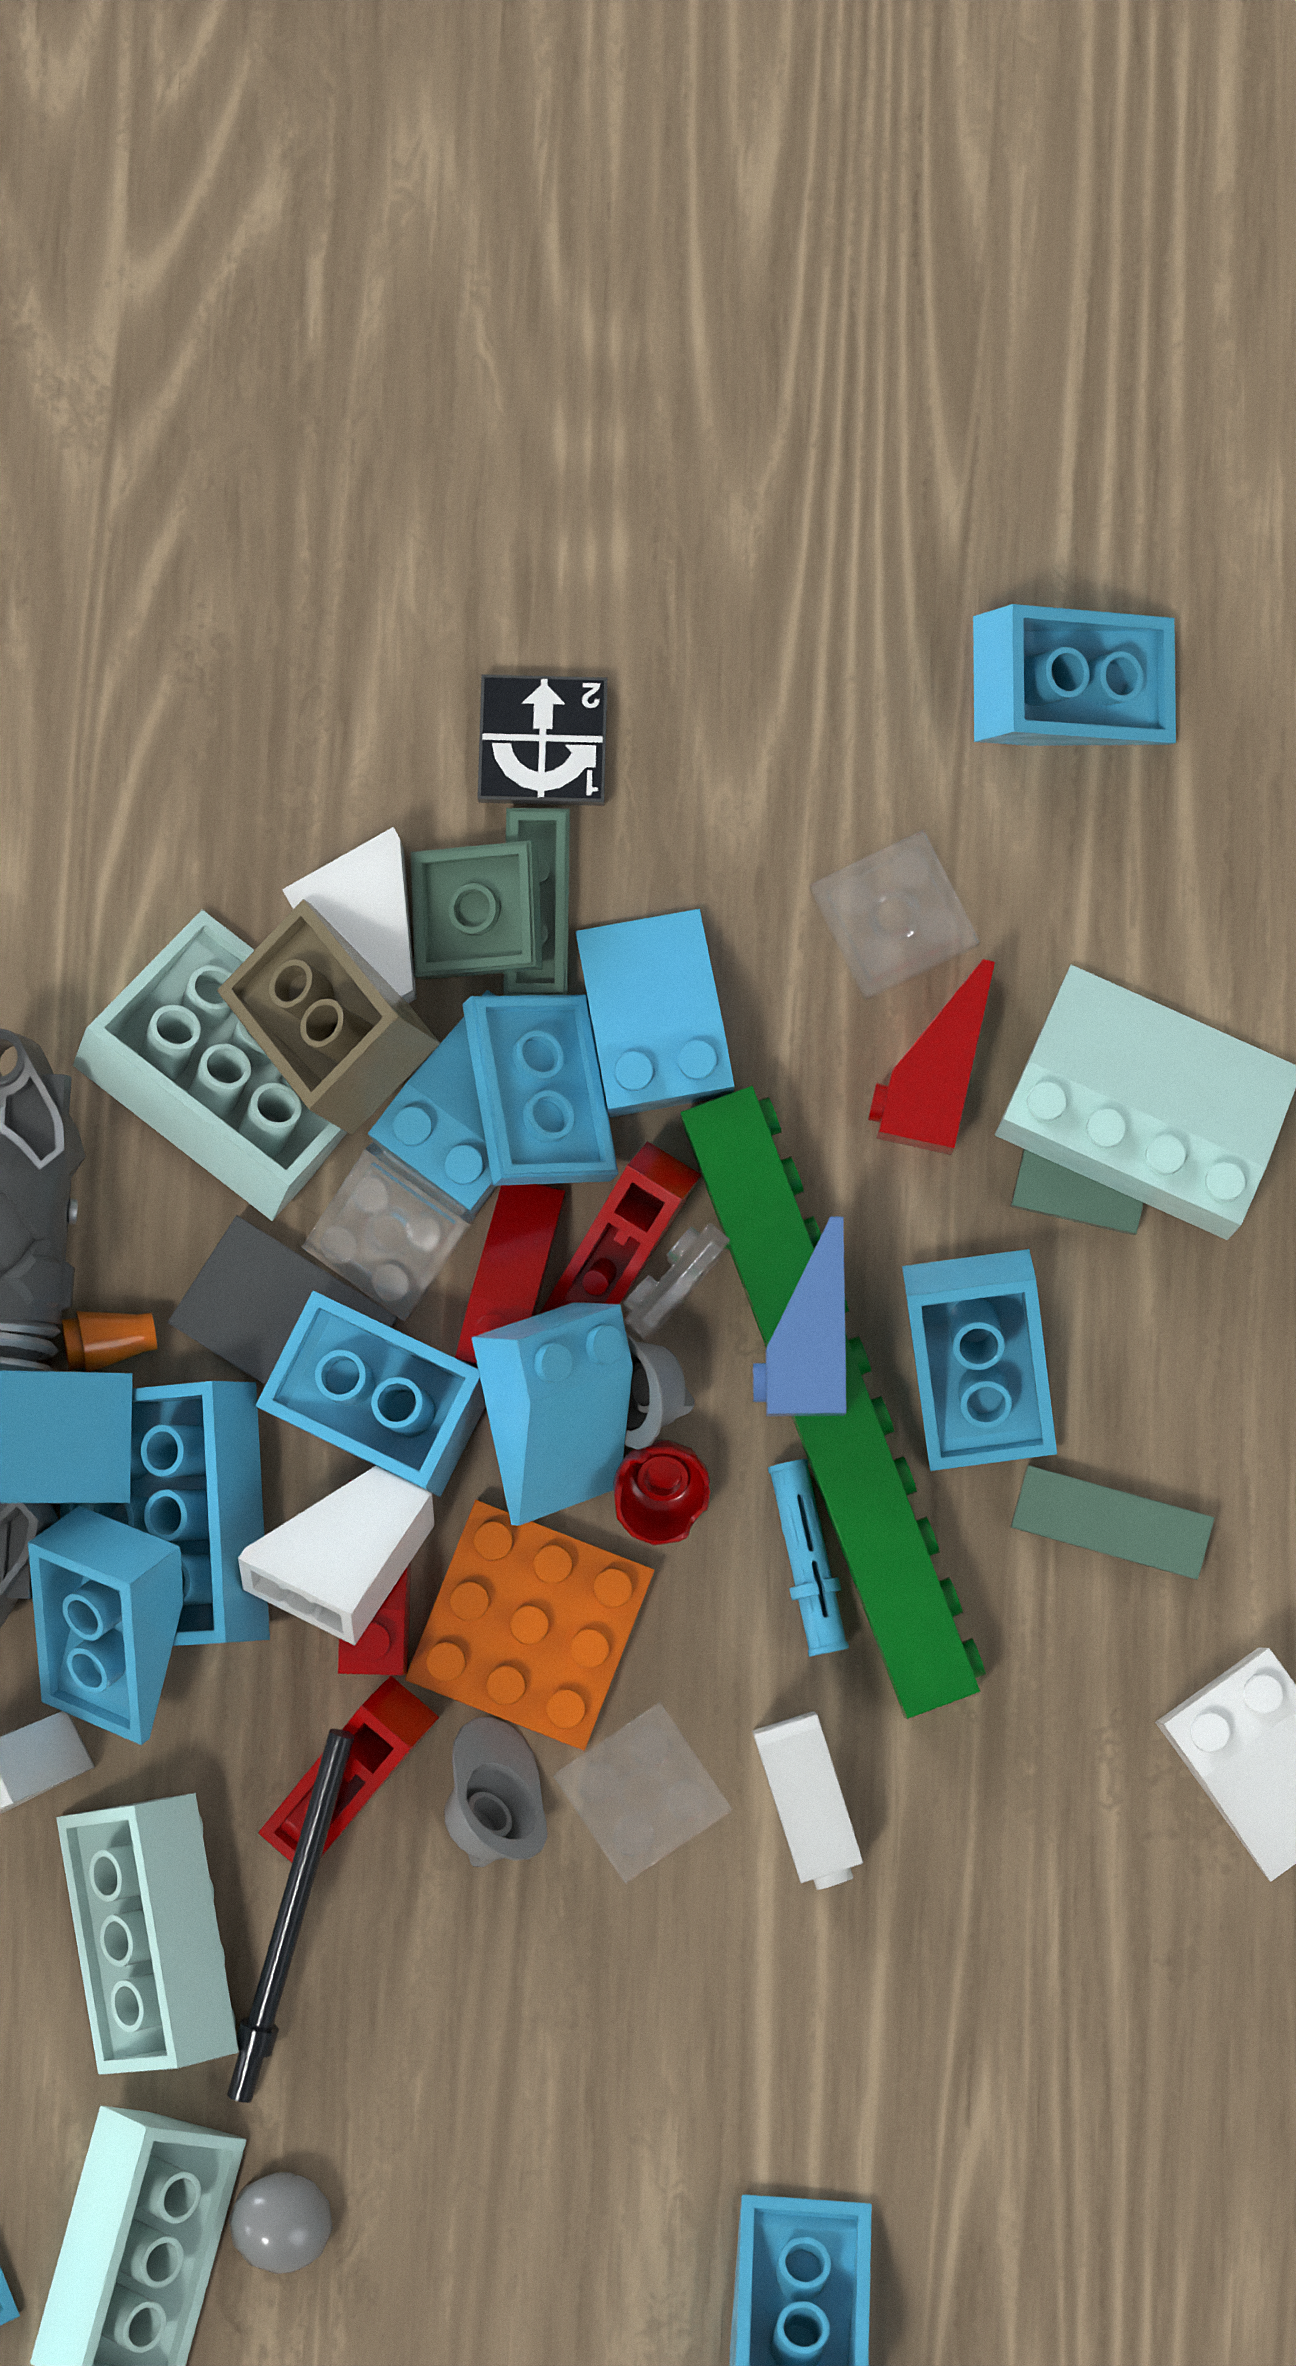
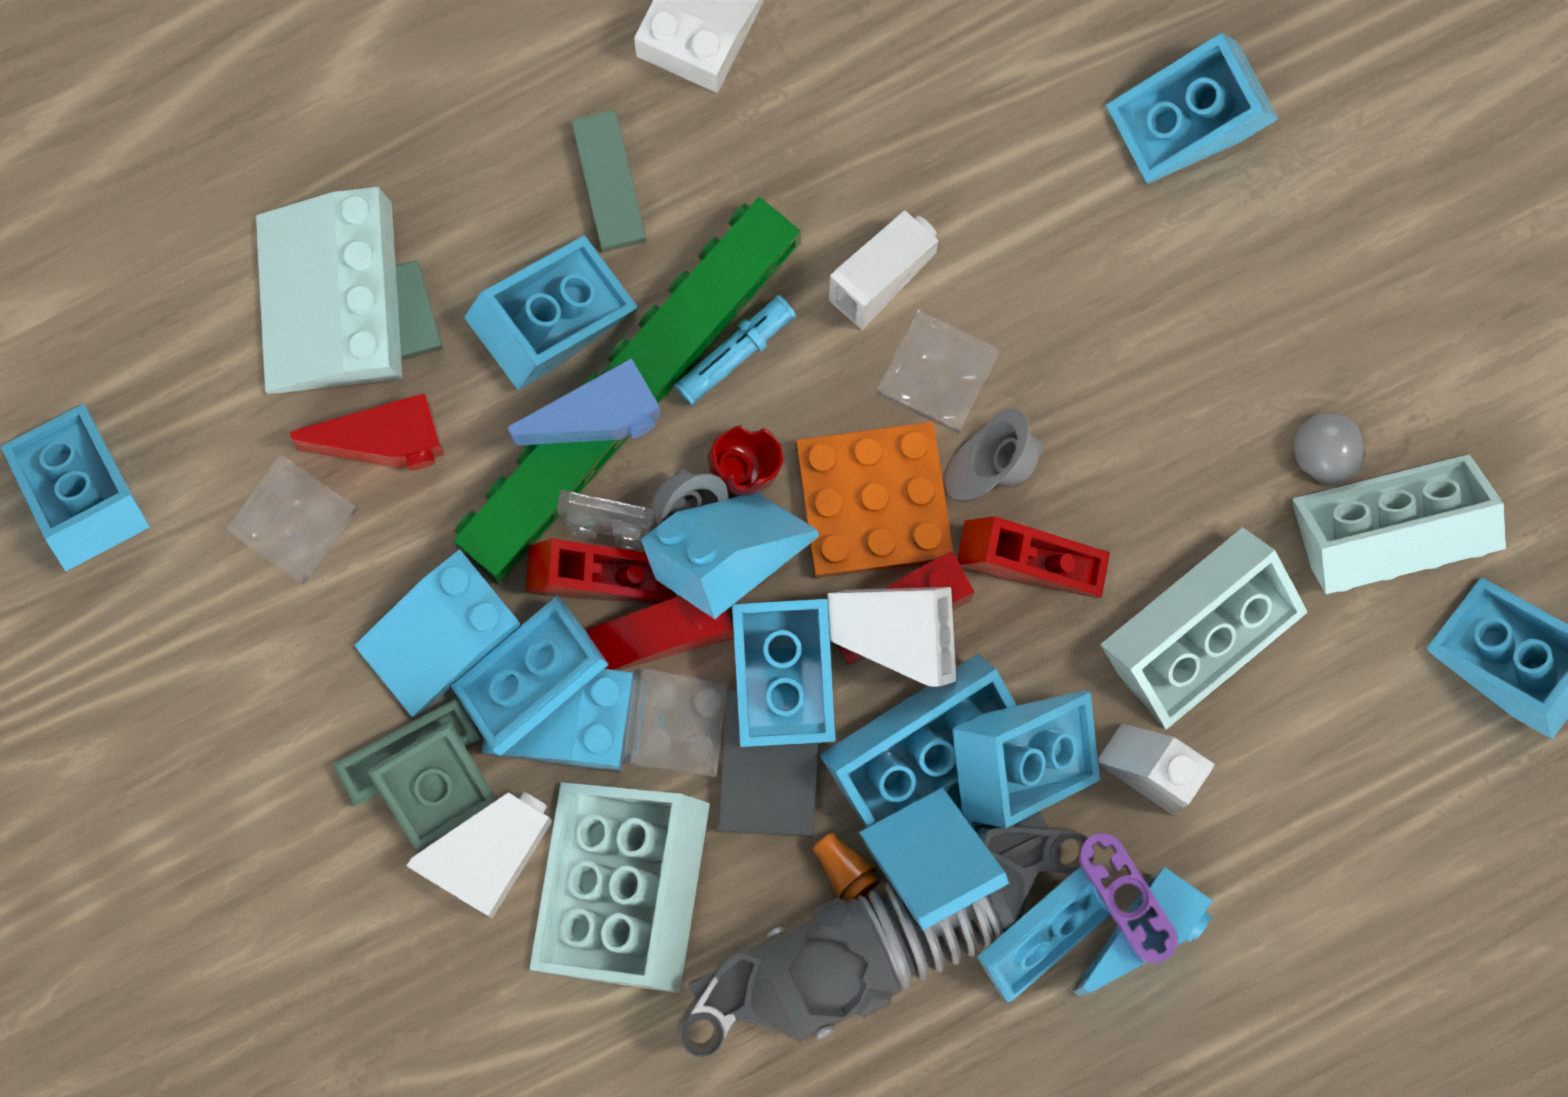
camera: 125 degrees left, 5 degrees down
(258, 2032) = (1222, 525): black bar -> none
(327, 1019) = (557, 834): dark tan slope -> none
(542, 740) = (295, 808): tile -> none

